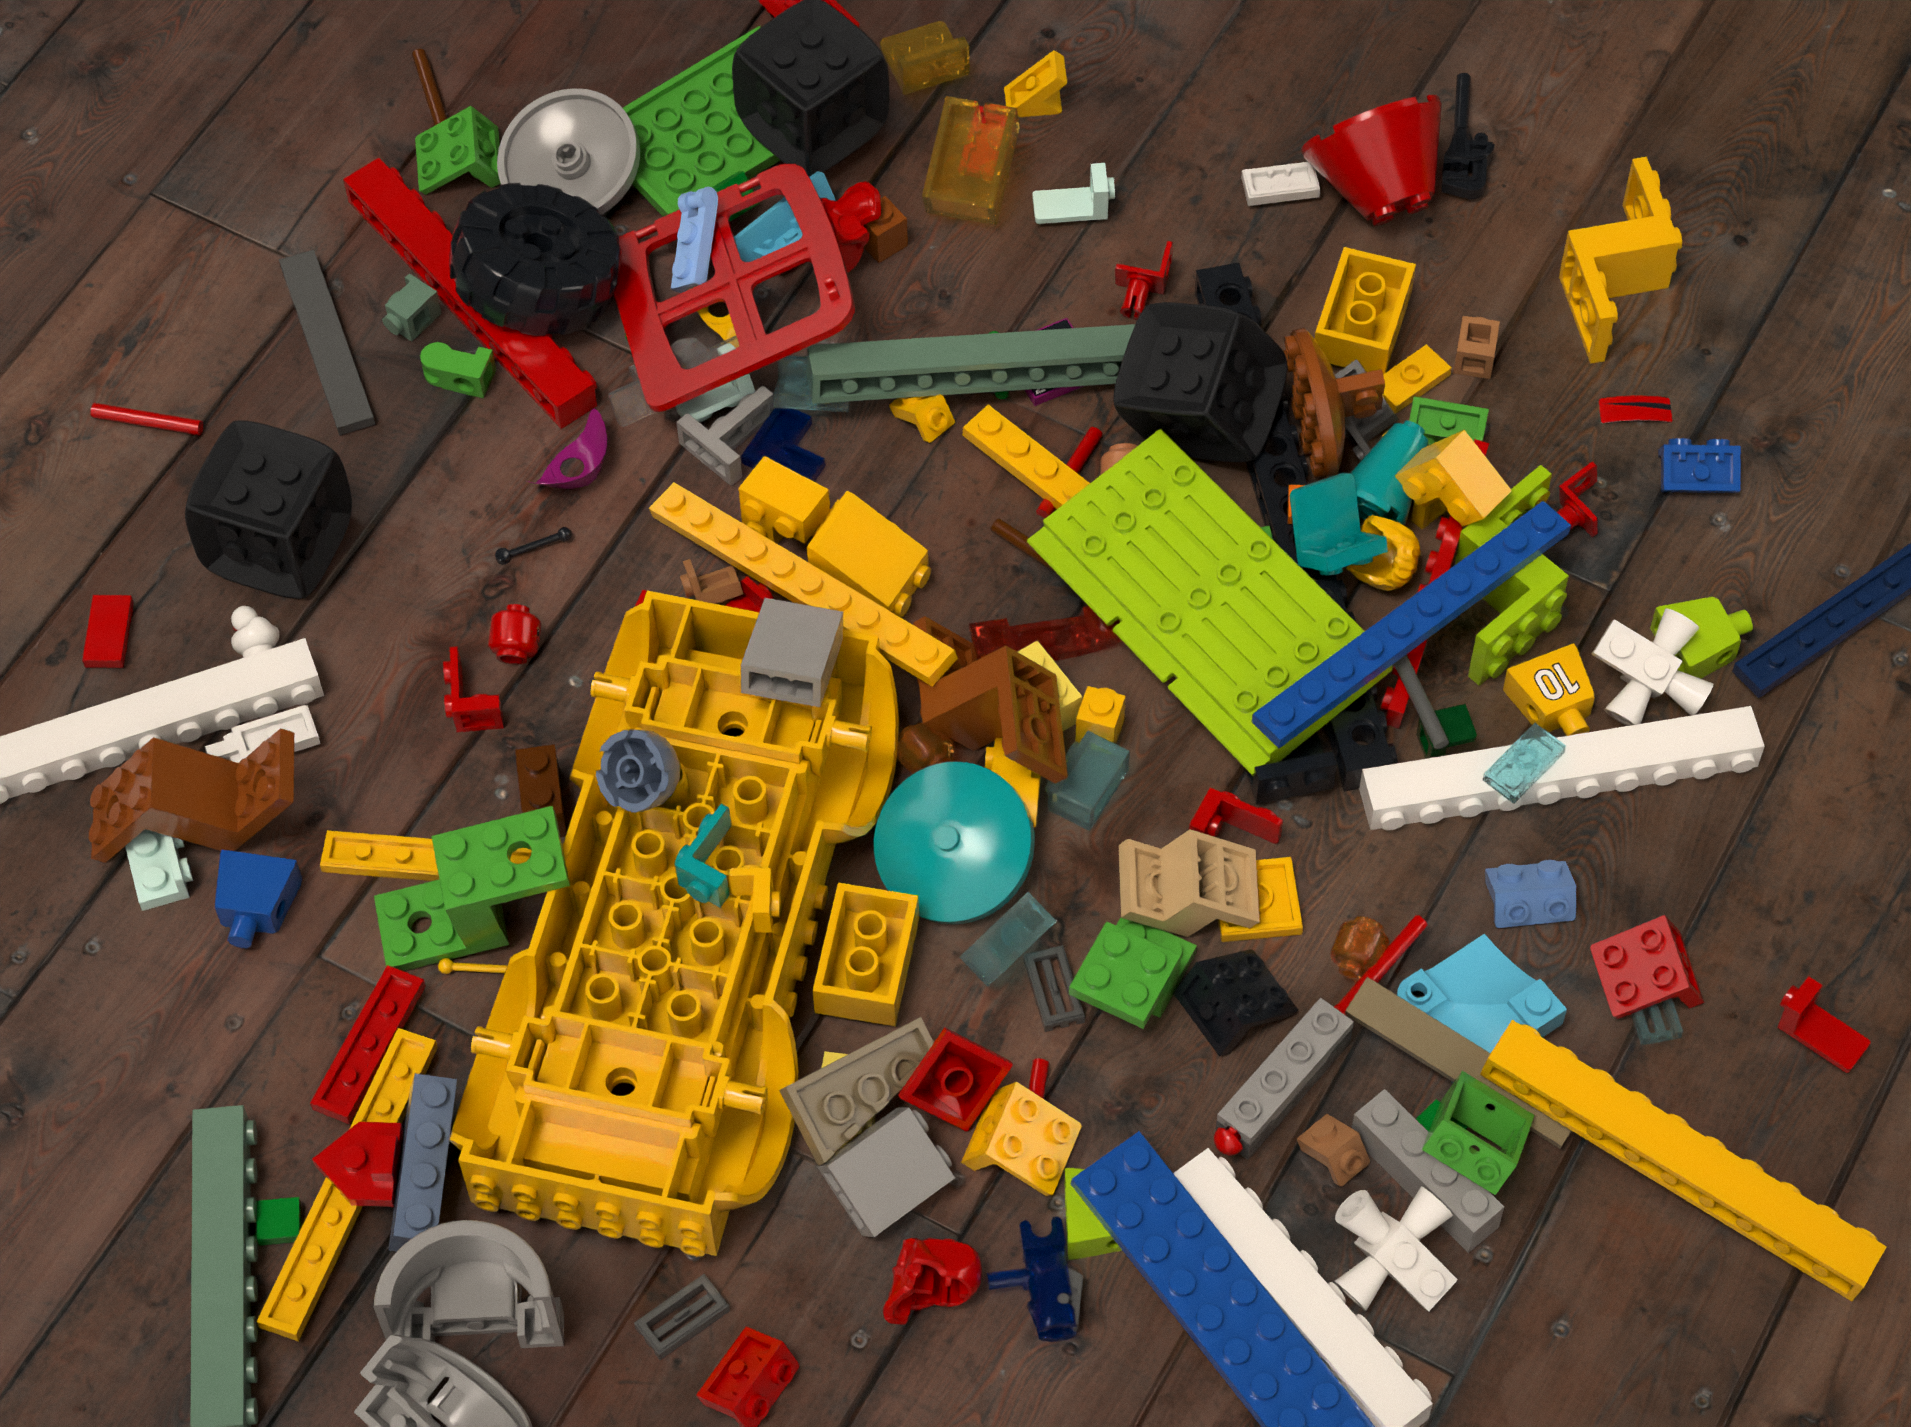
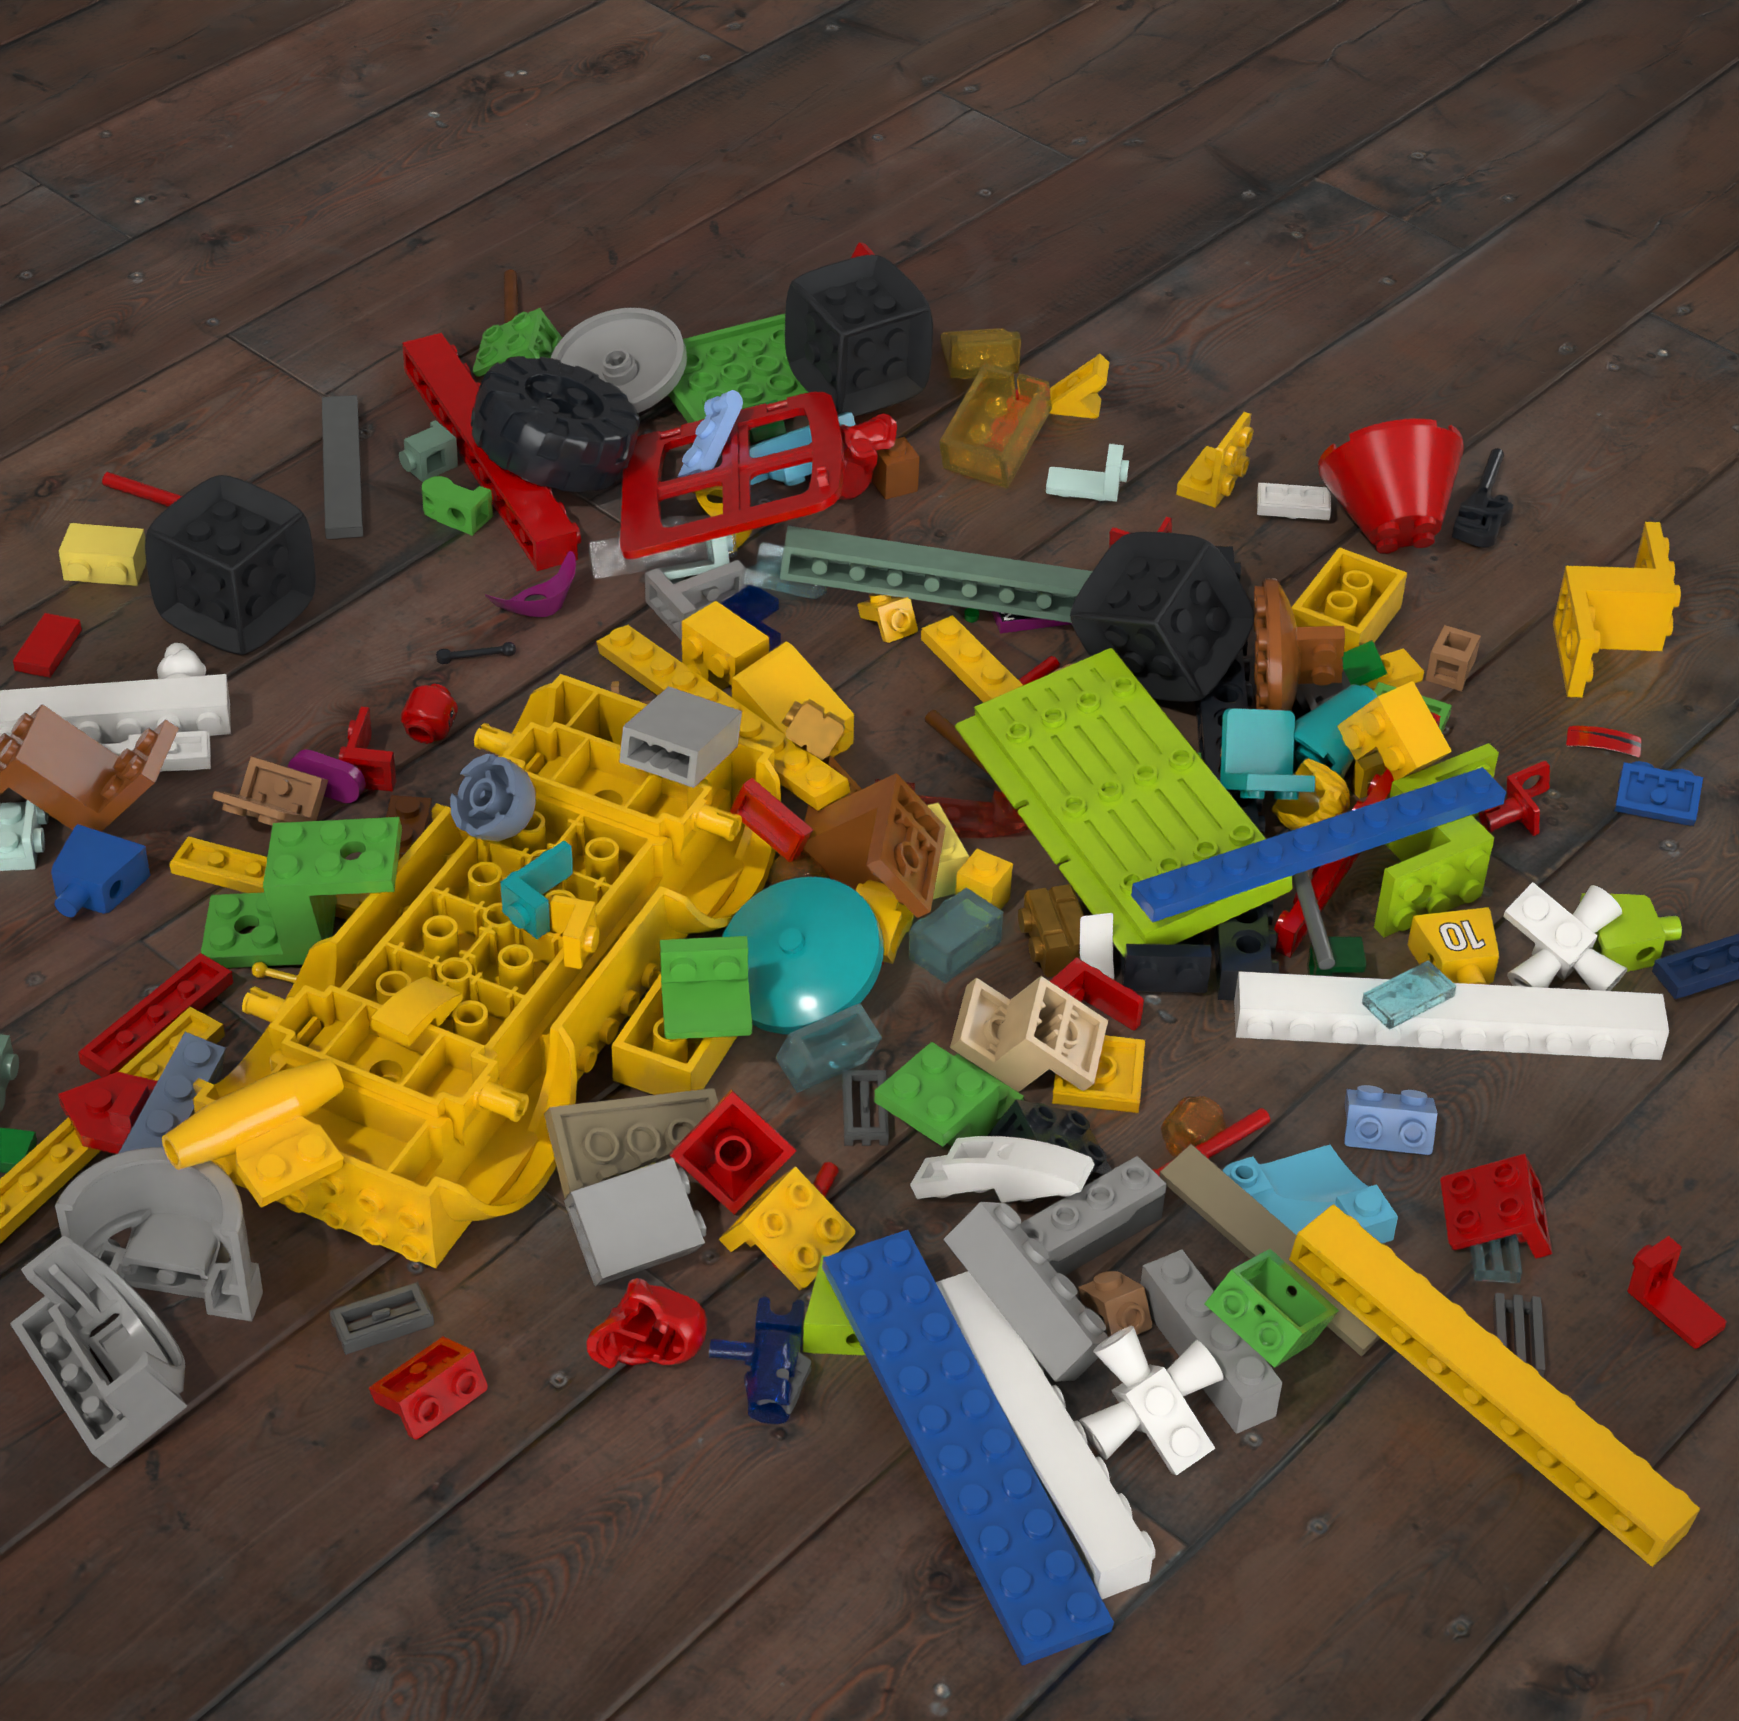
camera: 10 degrees right, 15 degrees down
(127, 510) = (103, 554): none -> light yellow brick
(398, 769) = (275, 794): none -> medium nougat bracket
(438, 731) = (344, 779): none -> magenta tile
(542, 1185) = (266, 1131): none -> yellow plate
(636, 1019) = (414, 1009): none -> yellow slope
(886, 917) = (705, 987): none -> bright green bracket
(892, 708) = (771, 820): none -> red tile
(903, 590) = (813, 727): none -> pearl gold brick
(1181, 754) = (1053, 927): none -> pearl gold brick
(1195, 159) = (1218, 468): none -> yellow bracket
(1206, 1037) = (1010, 1165): none -> white slope
(1225, 769) = (1097, 942): none -> white sticker
(1260, 1166) = (1028, 1290): none -> light grey brick
(1398, 378) = (1363, 664): none -> green tile
(1686, 1066) = (1519, 1308): none -> dark grey tile

